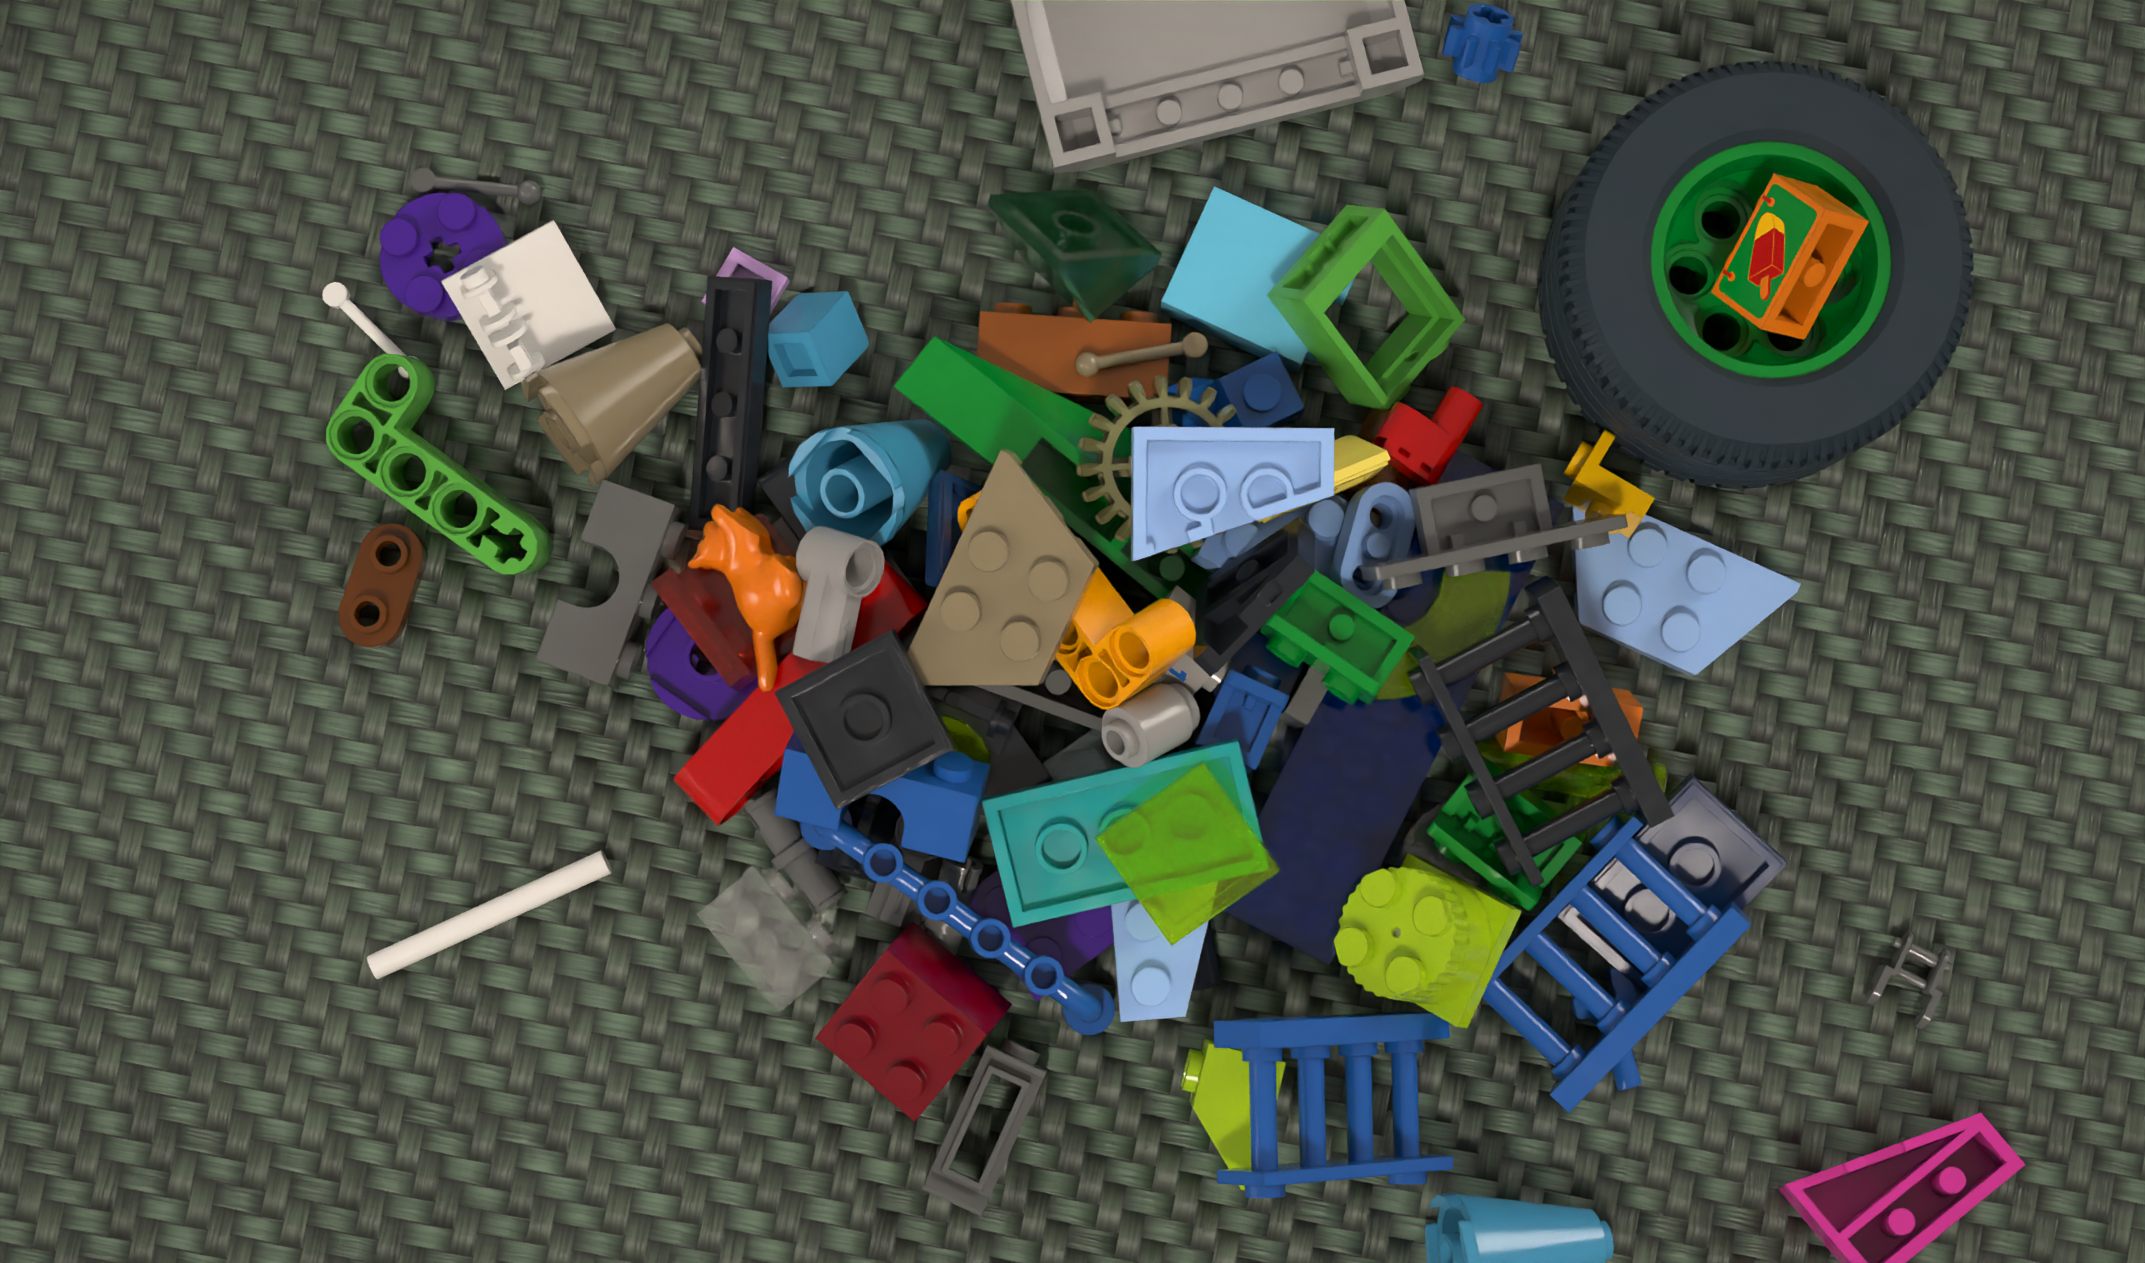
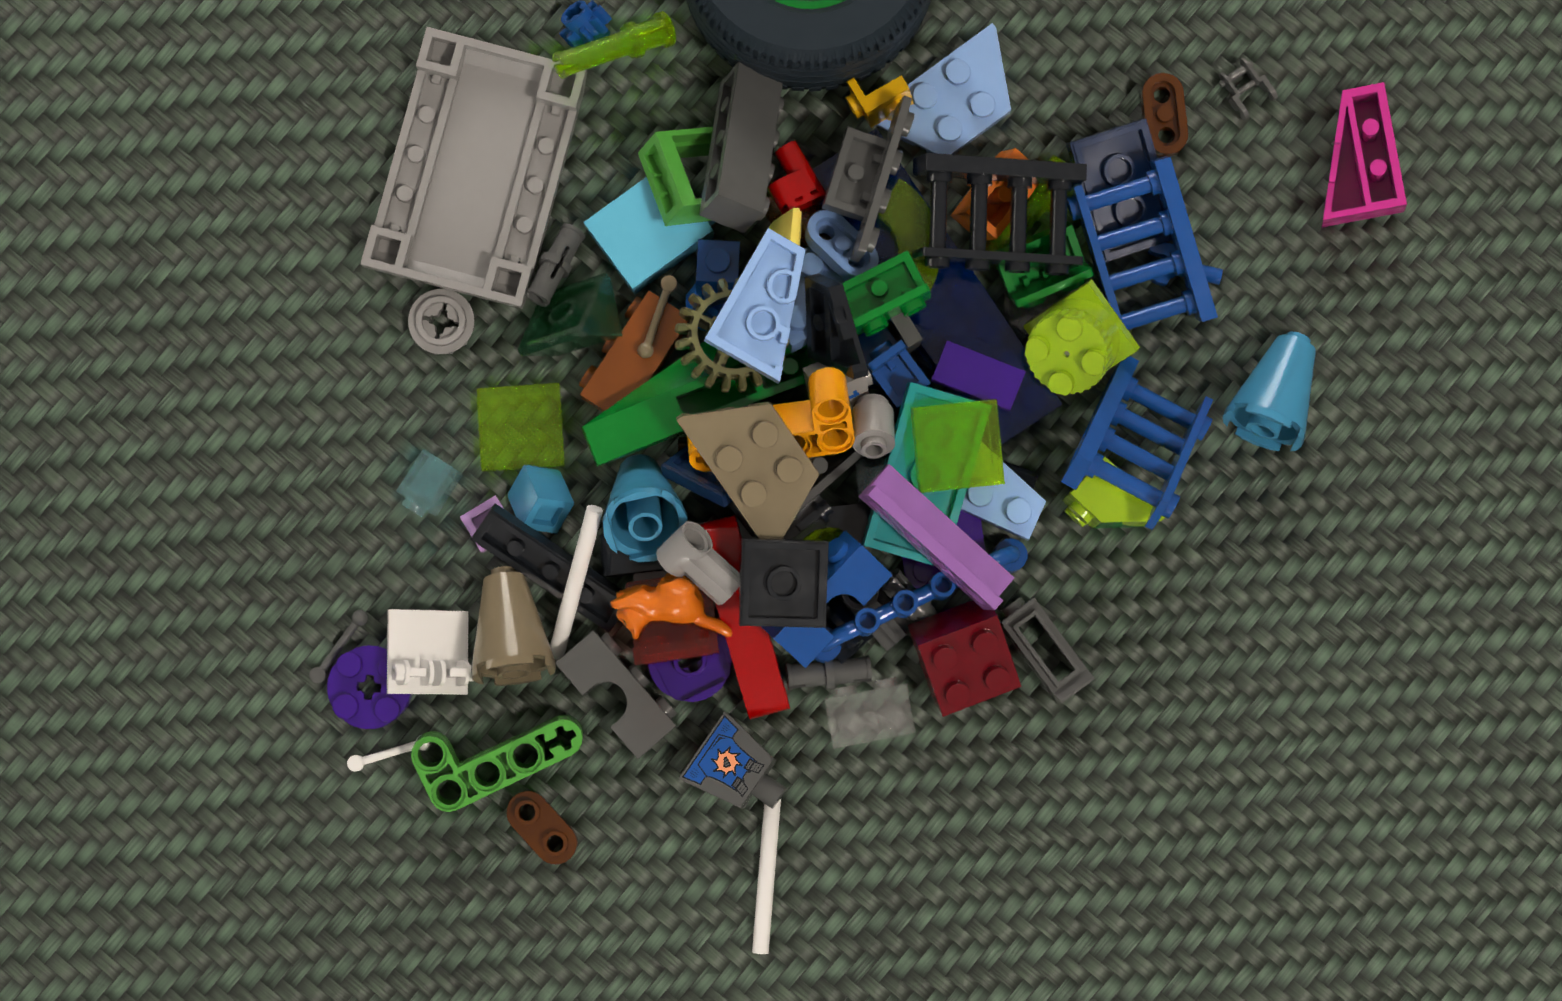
camera: 65 degrees left, 0 degrees up
(598, 793) = (733, 766): none -> torso
(726, 444) = (575, 580): none -> white bar
(752, 181) = (428, 484): none -> clear light blue brick
(898, 260) = (520, 427): none -> clear neon green tile
(994, 53) = (431, 305): none -> light grey gear
(1046, 895) = (937, 537): none -> medium lavender fence
(1138, 183) = (555, 264): none -> dark grey pin
(1301, 828) = (978, 375): none -> dark purple tile
(1429, 340) = (742, 149): none -> dark grey brick
(1496, 113) = (631, 41): none -> clear neon green pin
(1808, 890) = (1165, 116): none -> reddish brown plate

